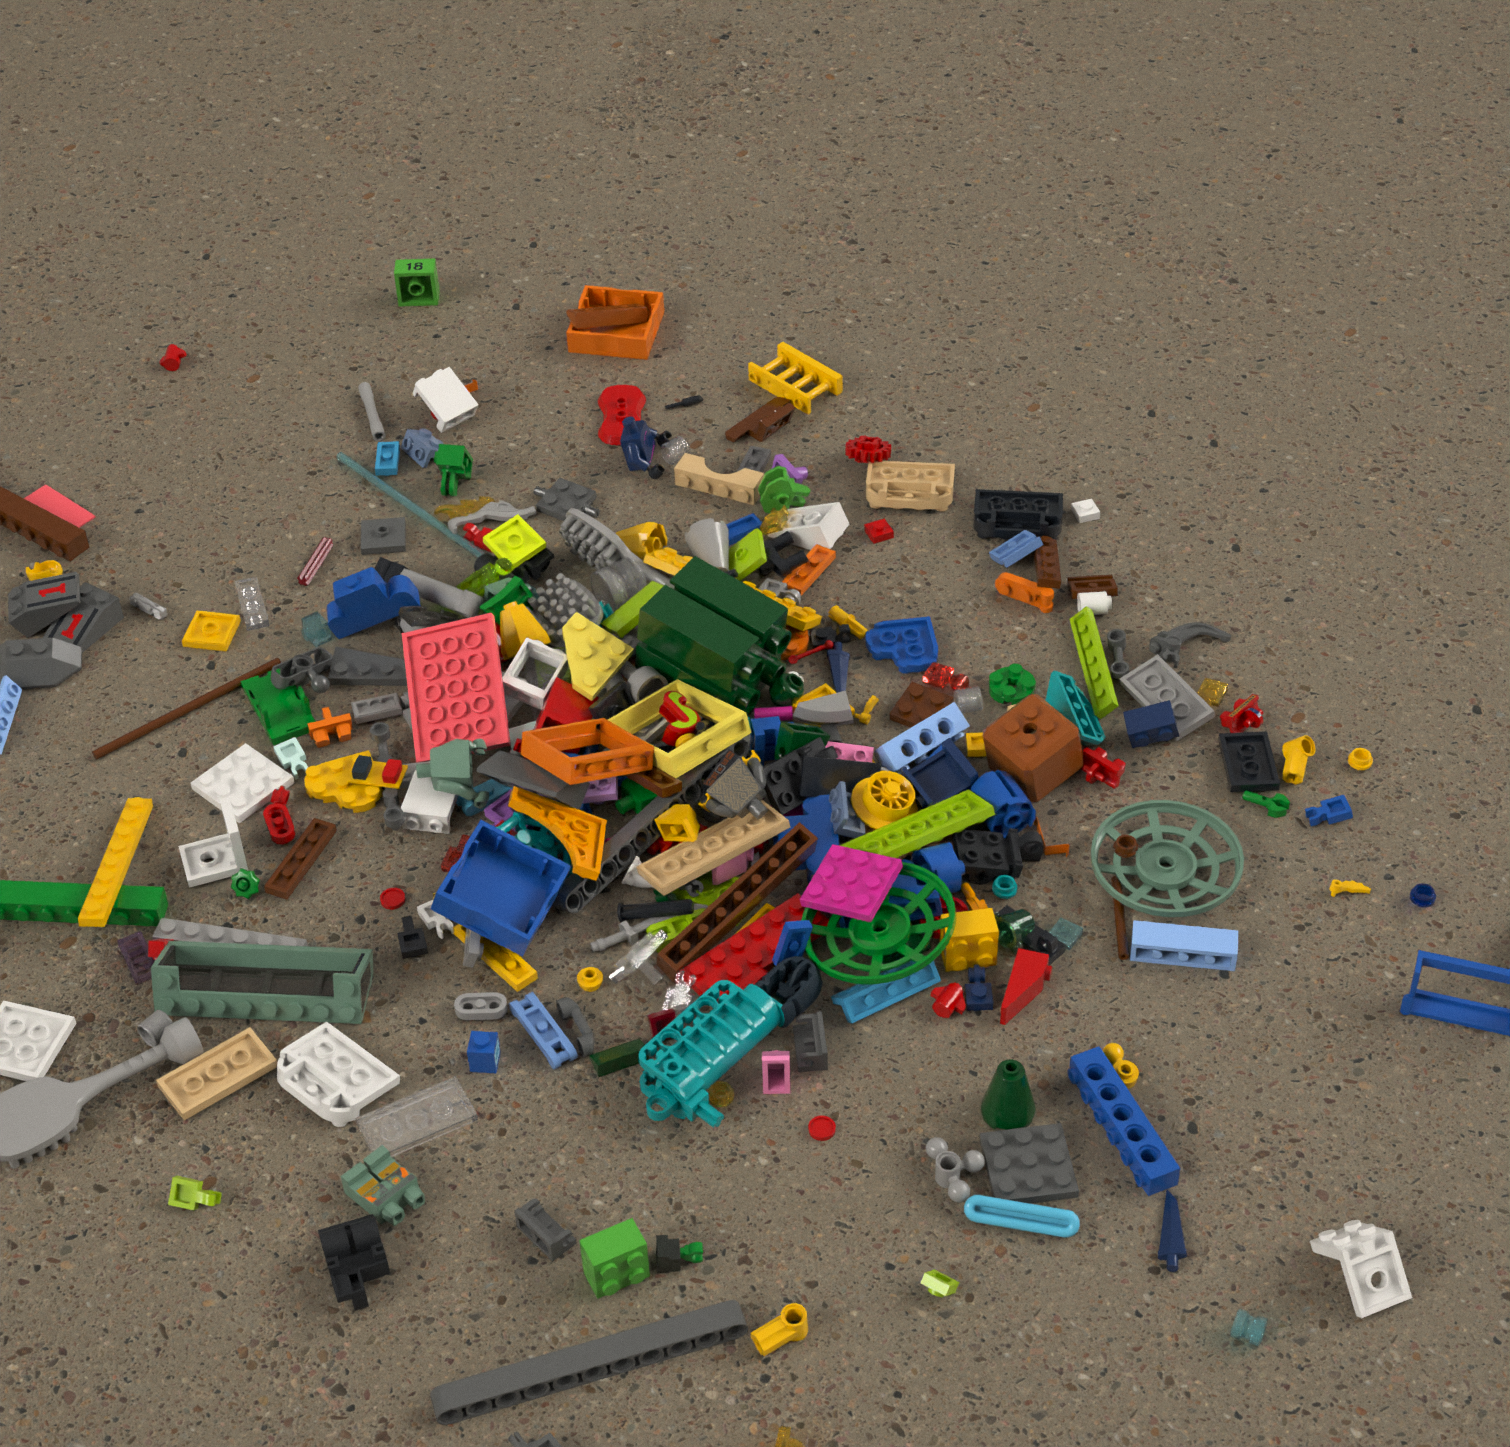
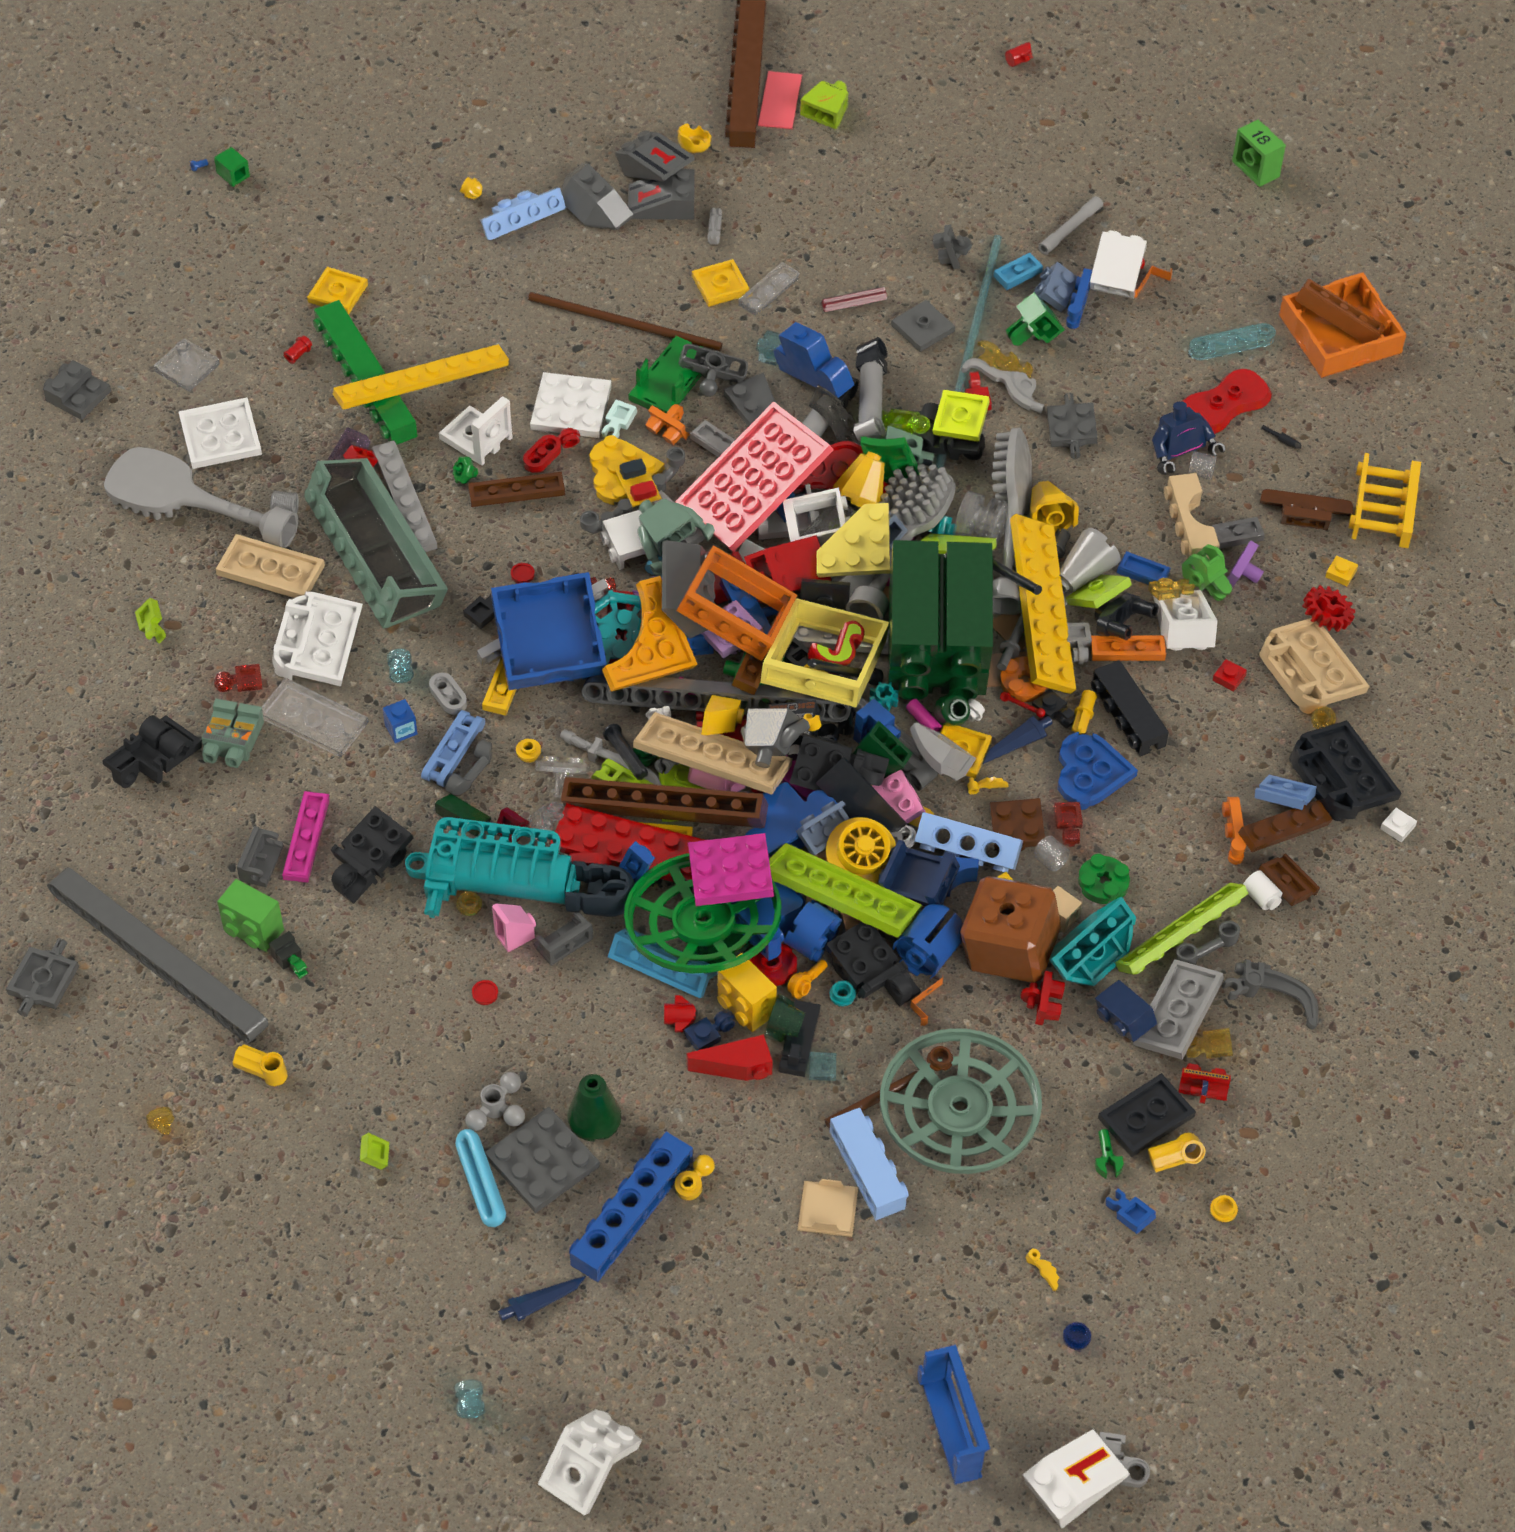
camera: 55 degrees right, 10 degrees up
(99, 481) = (825, 103): none -> lime torso
(328, 1147) = (246, 677): none -> clear red plate
(329, 478) = (954, 246): none -> dark grey hips
(420, 1025) = (400, 668): none -> clear light blue wheel
(447, 434) = (1078, 299): none -> blue plate
(547, 1185) = (306, 837): none -> dark pink tile
(570, 384) = (1231, 341): none -> clear light blue plate
(610, 1139) = (367, 852): none -> black plate
(835, 431) = (1341, 571): none -> yellow plate
(867, 594) = (1129, 708): none -> black brick
(963, 500) = (1323, 717): none -> clear yellow plate
(1204, 995) = (828, 1208): none -> tan piece

